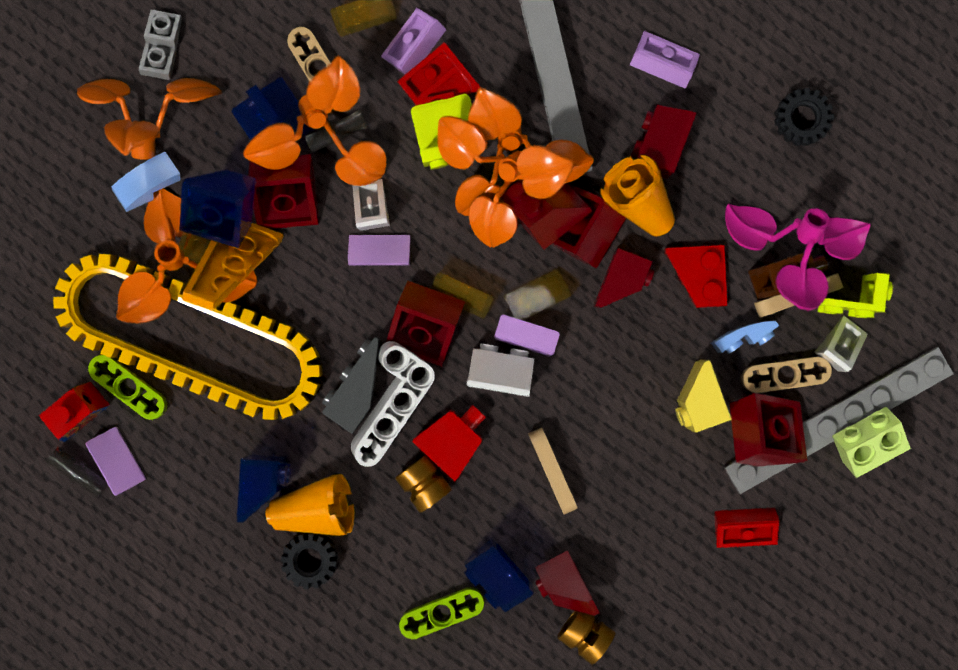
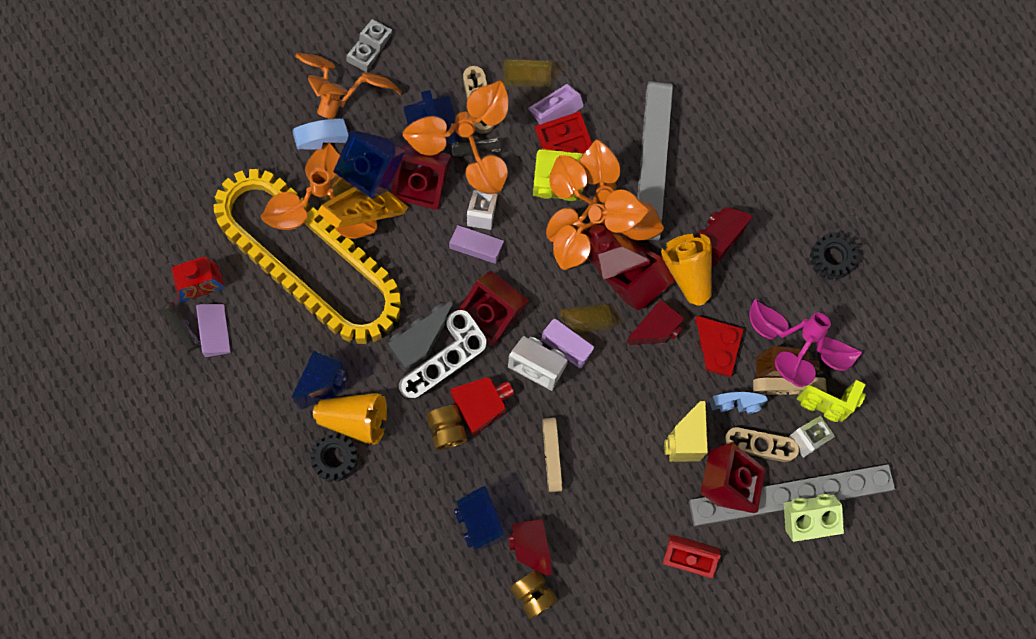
camera: 10 degrees right, 15 degrees down
(141, 407) = (246, 268): lime beam -> none
(417, 613) = (429, 528): lime beam -> none
(475, 300) = (538, 304): clear yellow slope -> none
(665, 59) = (740, 181): lavender slope -> none

